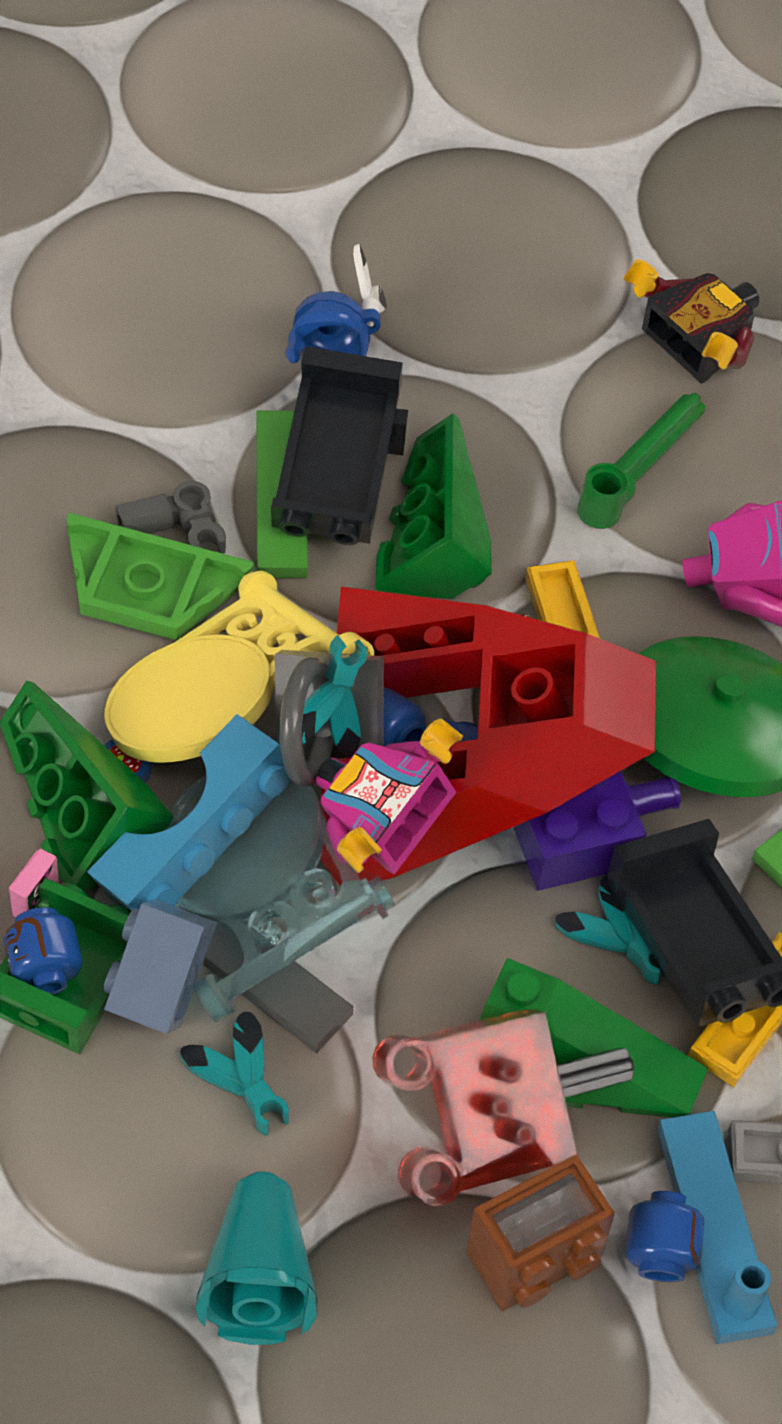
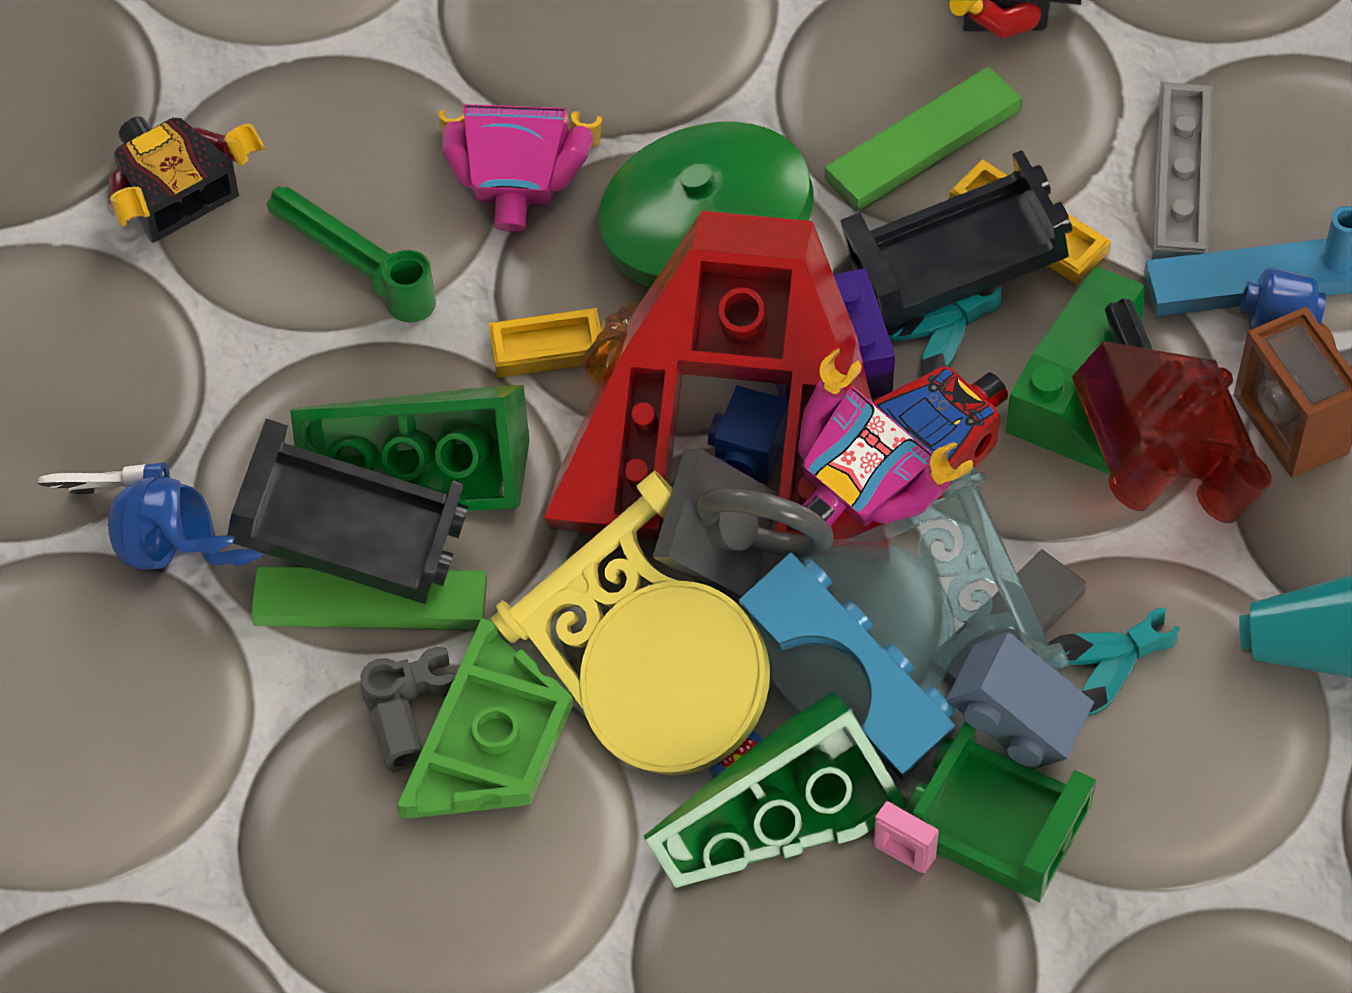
camera: 80 degrees left, 0 degrees up
(43, 949) = (997, 818): blue head -> none
(335, 700) = (721, 473): teal piece -> none
(484, 917) = (948, 410): none -> torso

